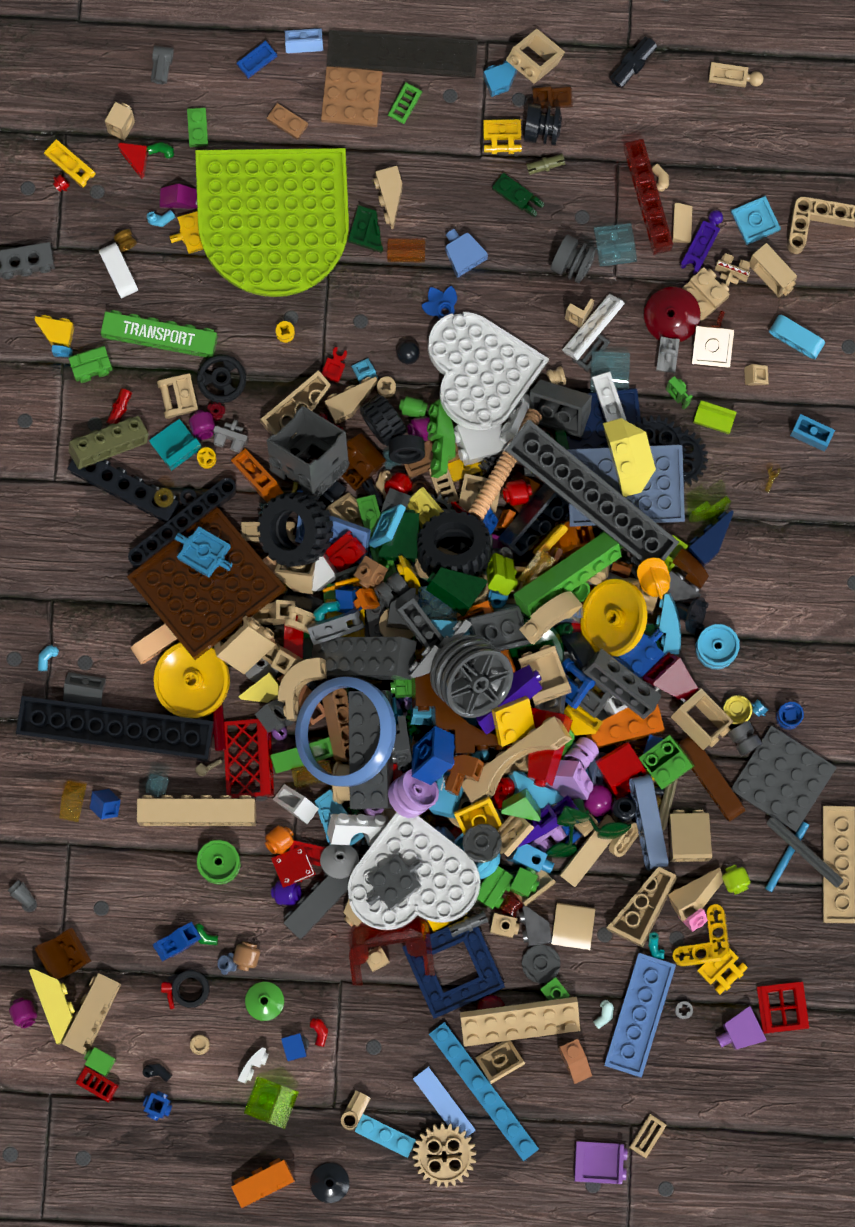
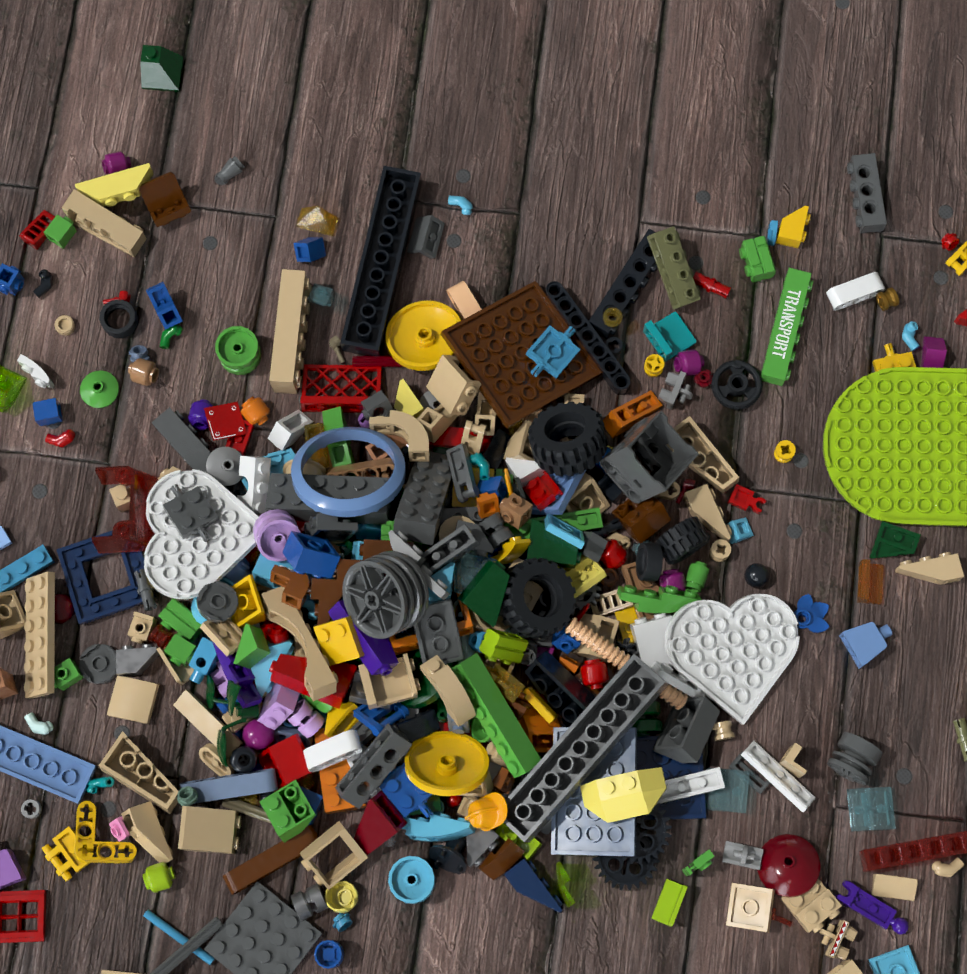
camera: 100 degrees right, 5 degrees down
(184, 395) = (722, 347): tan plate -> none
(516, 194) = (931, 705): dark green hinge -> none
(610, 724) = (332, 750): none -> white beam
(657, 858) = (187, 796): none -> sand green plate
(756, 375) = (716, 956): tan slope -> none
(772, 477) = (600, 962): clear yellow hand -> none

